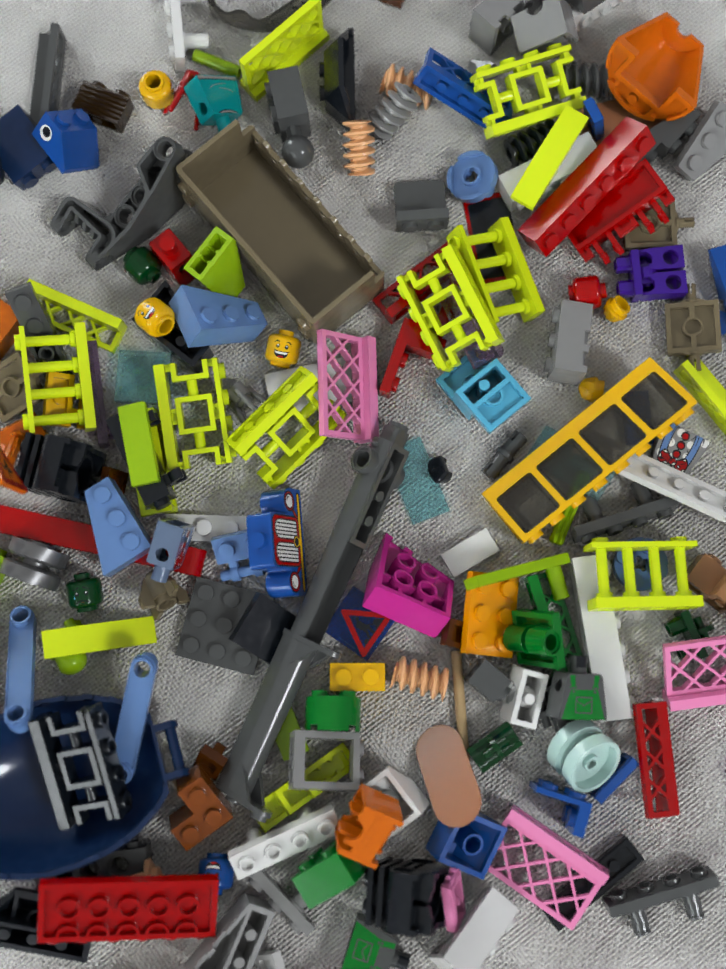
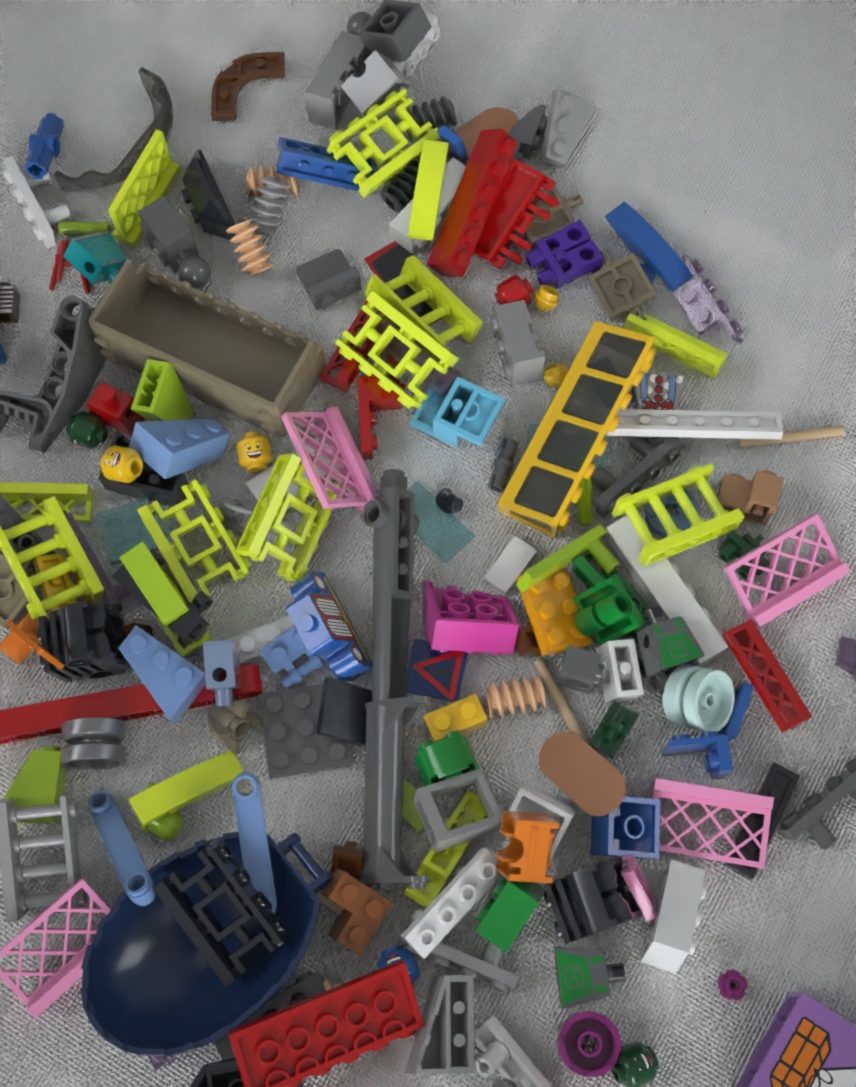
camera: 25 degrees left, 10 degrees down
(84, 592) = (154, 753): dark green head -> none
(156, 89) = (36, 269): yellow head -> none
(482, 186) = (376, 242): medium blue plate -> none
(656, 70) = (489, 85): orange cone -> none

